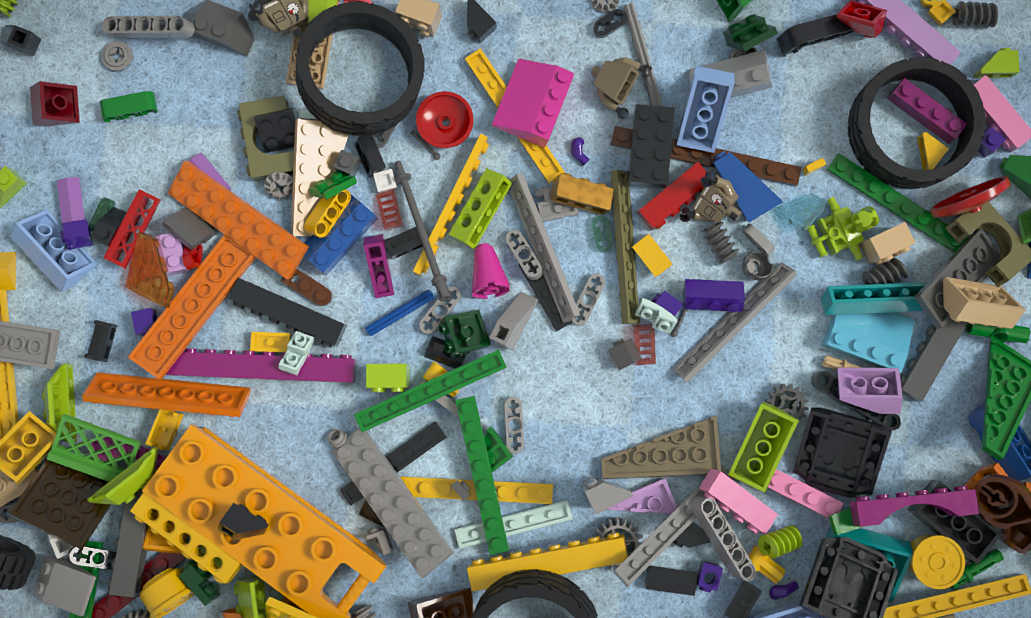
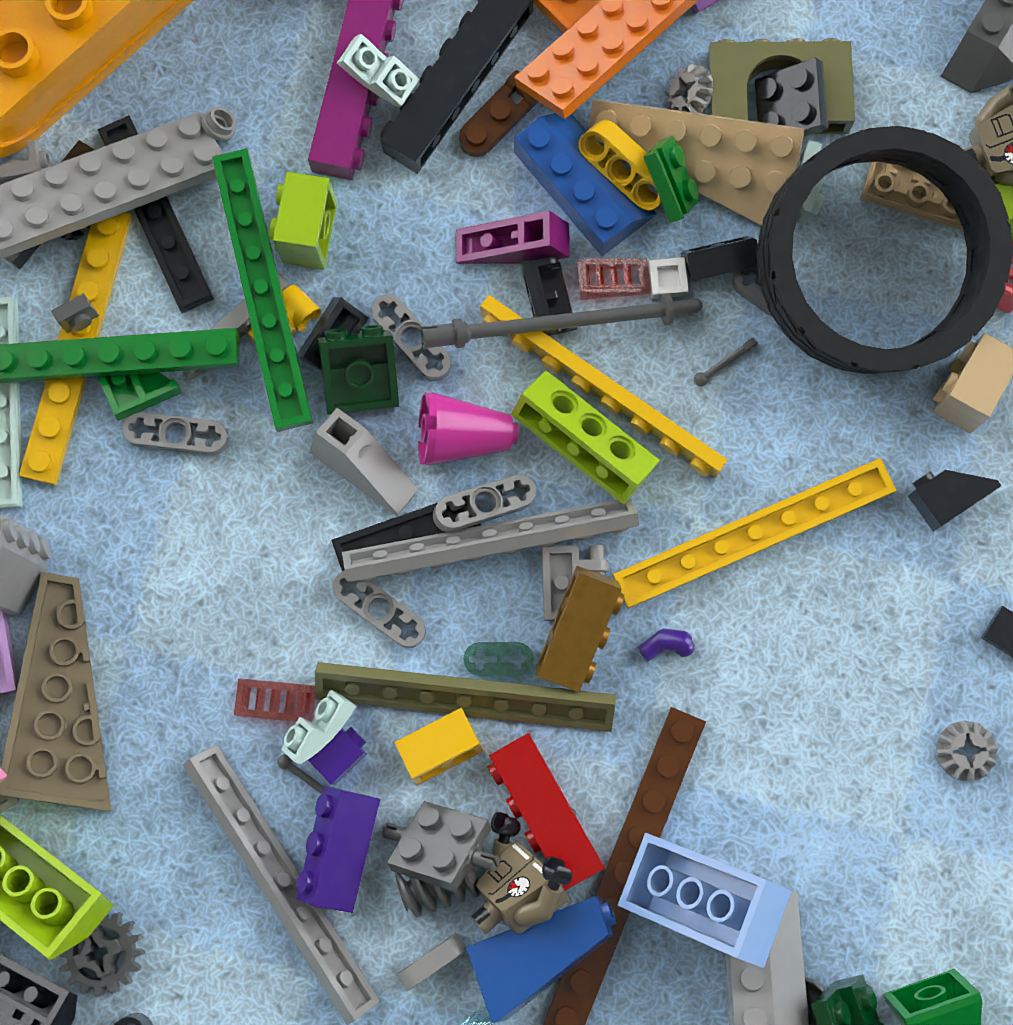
camera: 100 degrees right, 5 degrees down
(269, 341) = (412, 35): yellow plate -> none
(347, 163) = (709, 214): dark grey brick -> none
(399, 312) = (420, 263): blue axle -> none
(442, 107) = (779, 380): red dish -> none
(533, 101) = (776, 569): dark pink slope -> none
(612, 27) = (920, 745): black beam -> none
(616, 80) = (791, 737): dark tan torso -> none
(624, 353) = (261, 656): dark grey brick -> none
(642, 54) = (834, 804): light grey axle -> none
(651, 146) = (650, 778): black brick -> none
(702, 243) = (440, 846): none -> plate
(764, 268) = (384, 934): dark grey hair -> none

